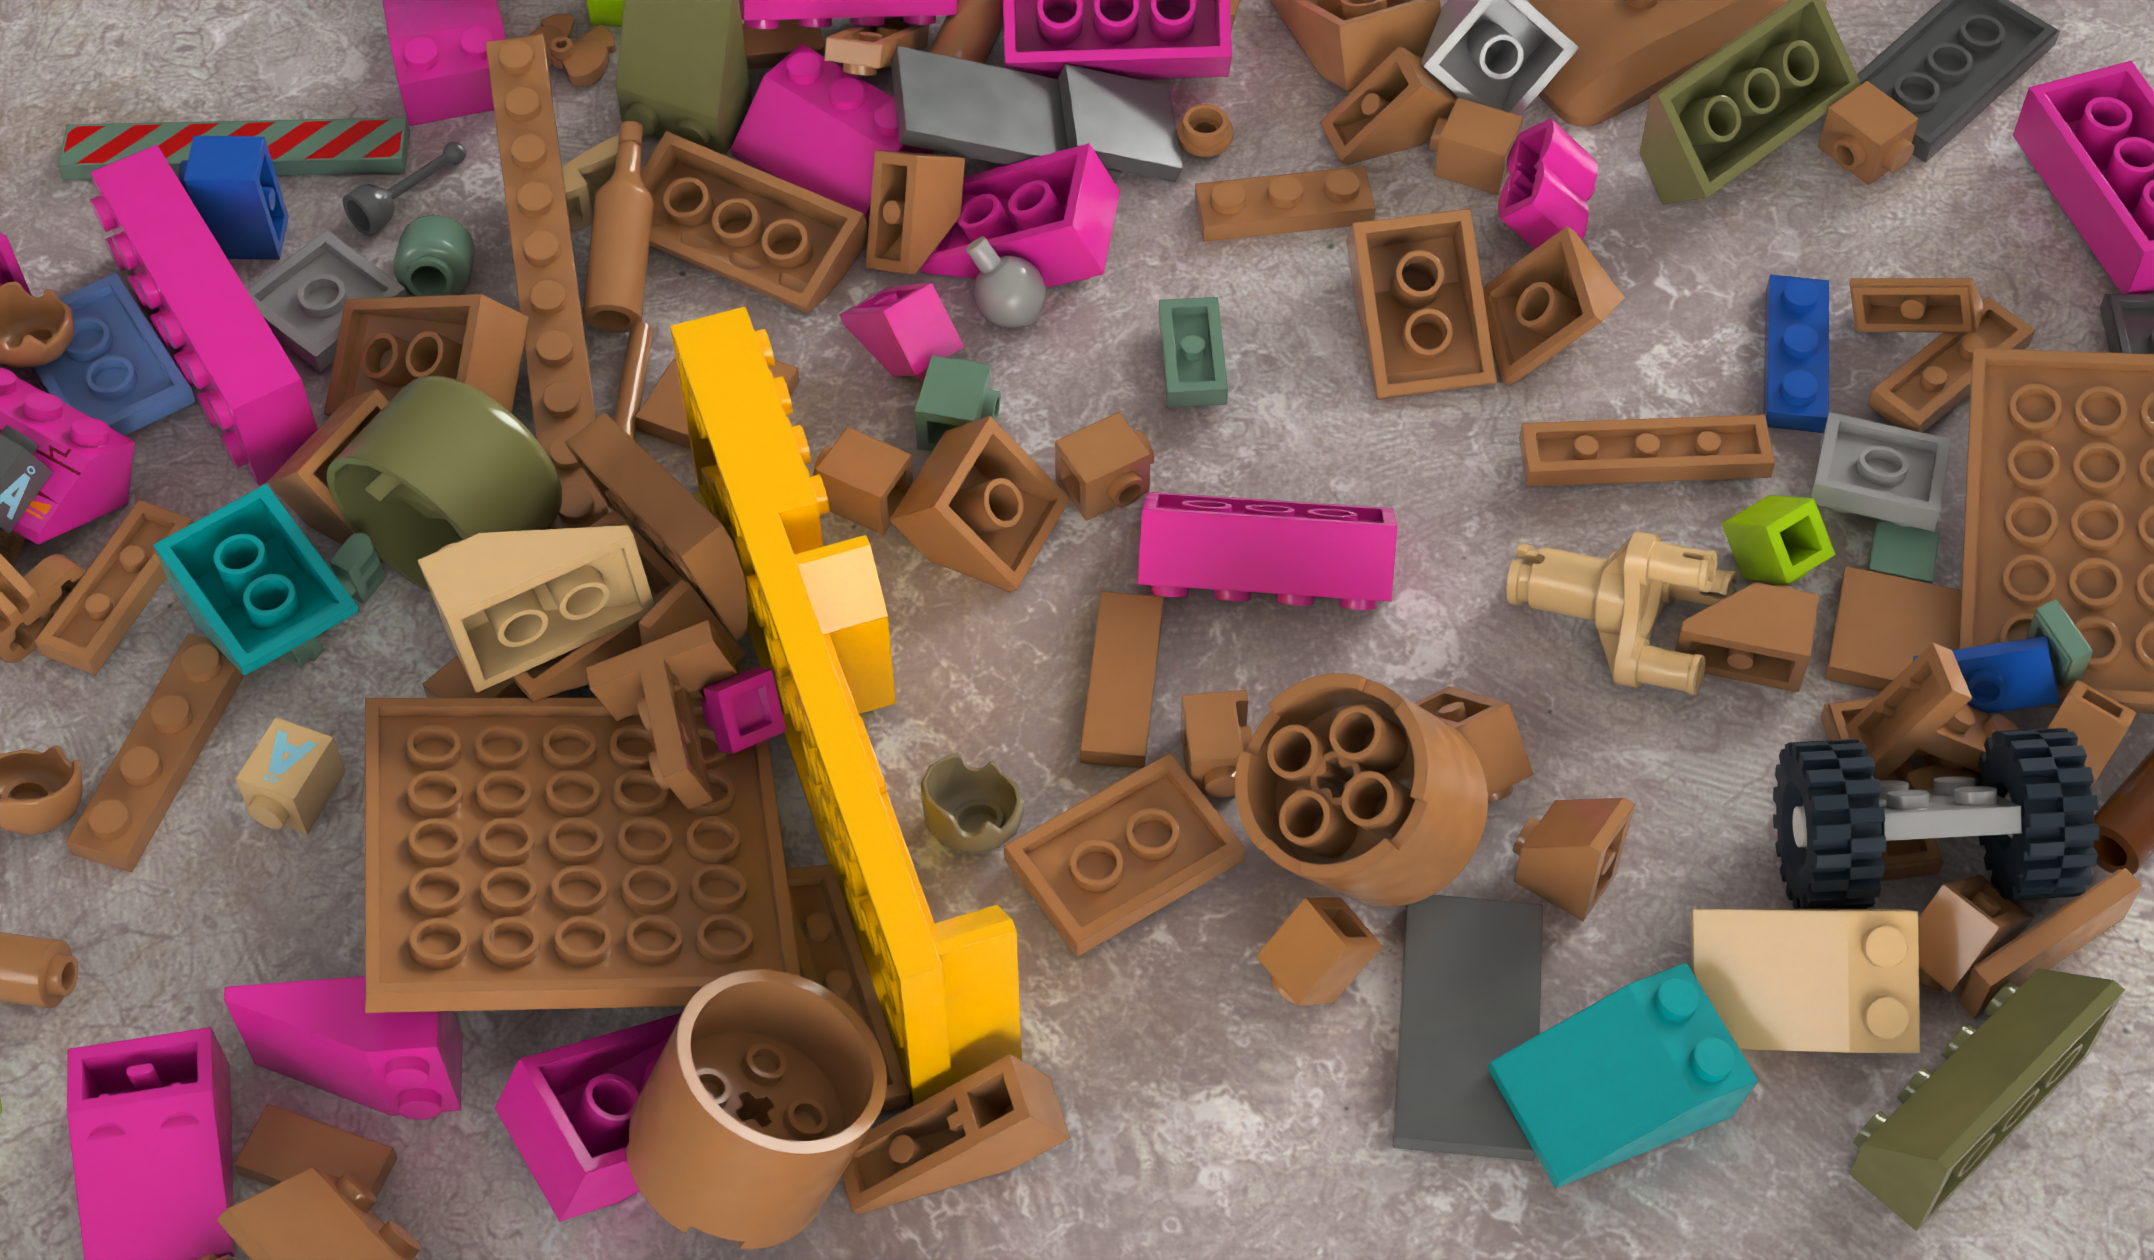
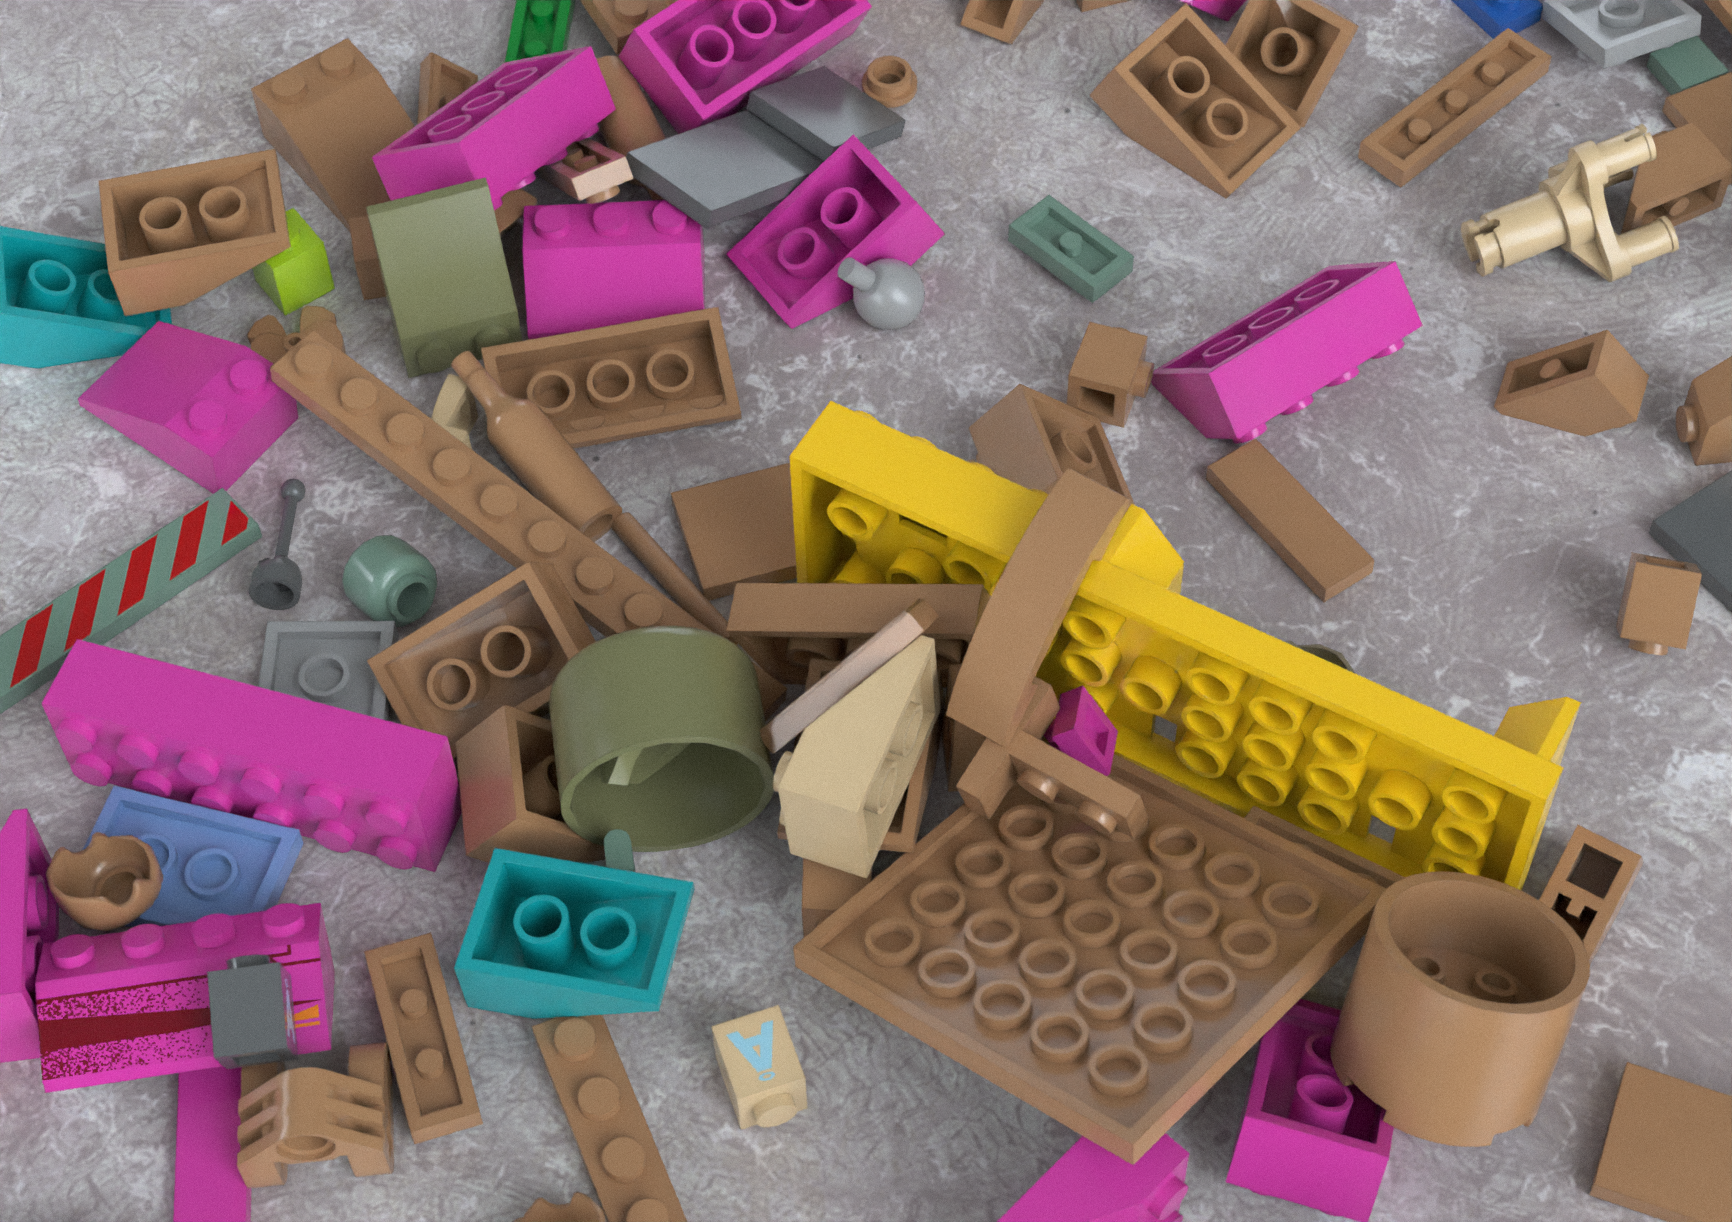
camera: 40 degrees left, 0 degrees up
(237, 194) = (166, 625): blue brick -> none
(637, 512) = (848, 674): none -> medium nougat tile
(721, 546) = (1031, 604): none -> medium nougat slope
(904, 328) = (845, 366): dark pink slope -> none
(911, 207) = (749, 280): medium nougat slope -> none
(953, 396) = (944, 401): sand green brick -> none
(1124, 854) = (1444, 631): medium nougat plate -> none
(1212, 737) = (1415, 515): medium nougat brick -> none
(1284, 203) = (1004, 100): medium nougat plate -> none
(1376, 836) = (1607, 507): medium nougat brick -> none
(1778, 539) = (1617, 100): lime brick -> none

